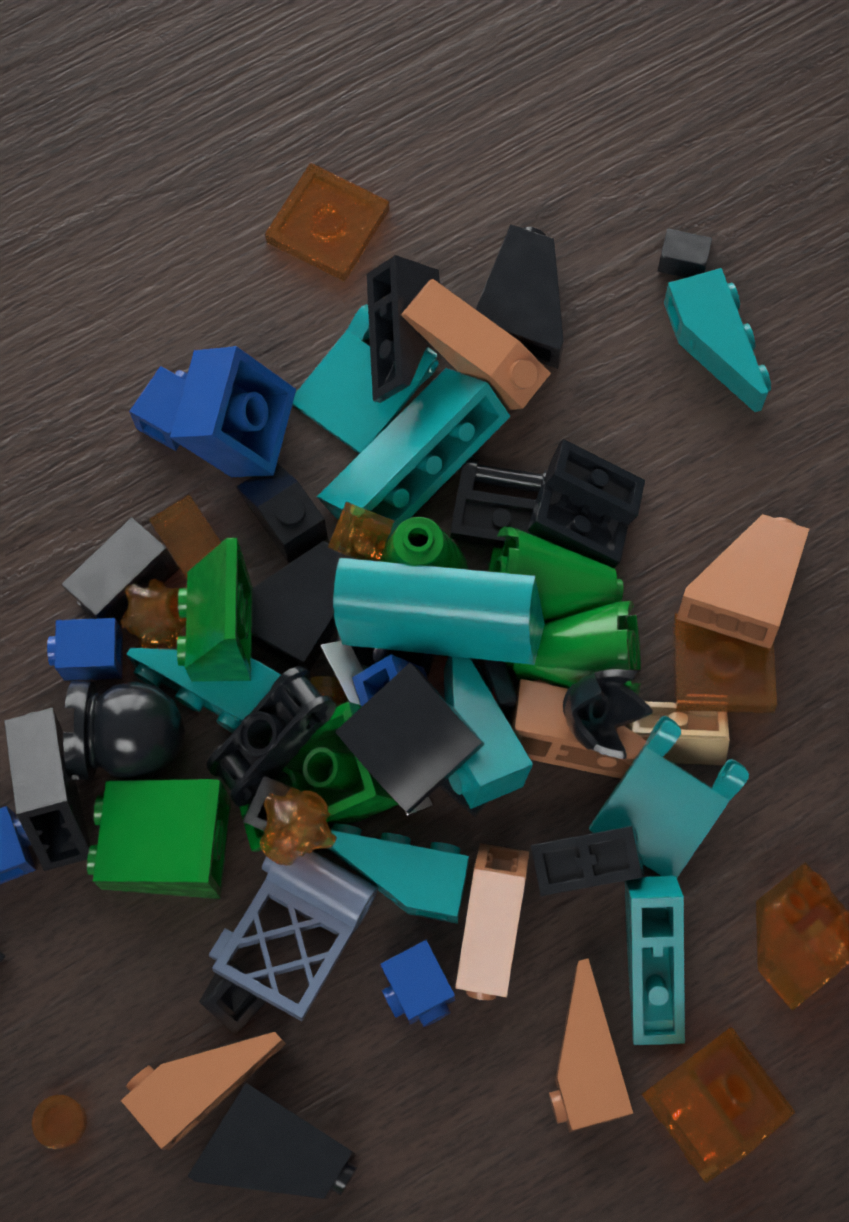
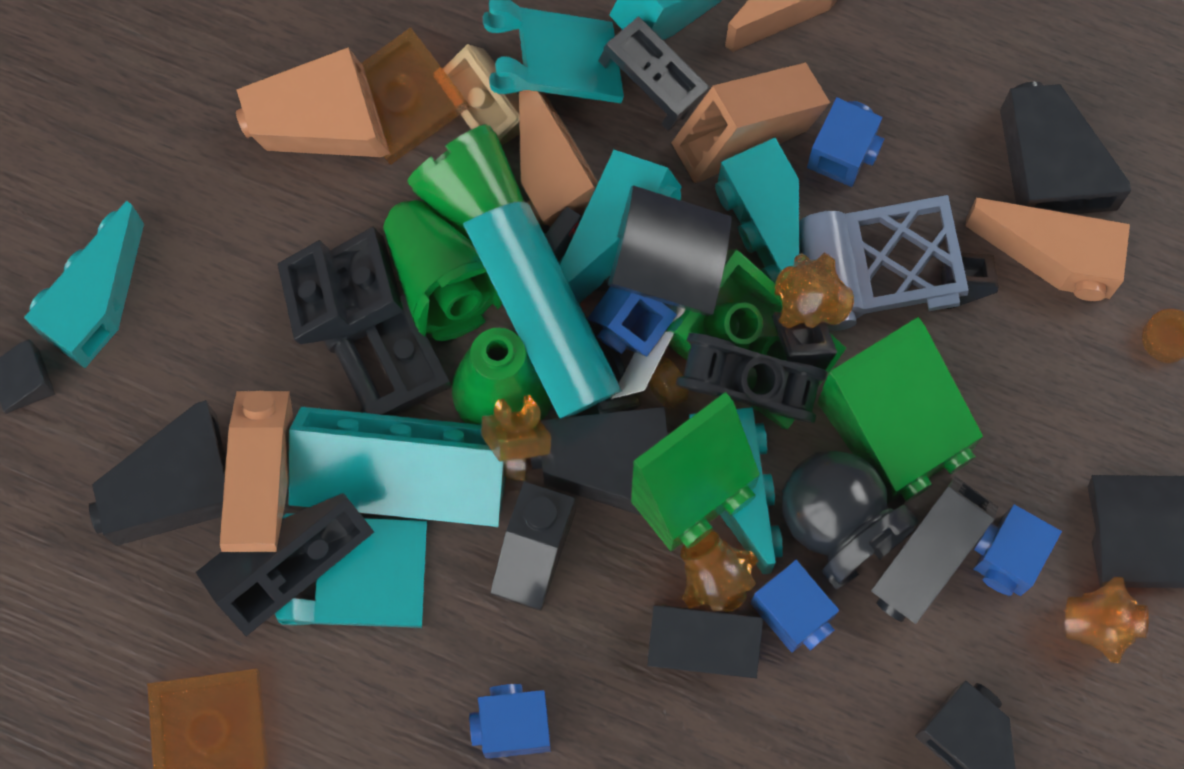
camera: 130 degrees left, 0 degrees up
(185, 533) = (625, 601): clear orange tile -> none
(233, 412) = (483, 643): blue brick -> none
(601, 705) = (530, 133): black piece -> none

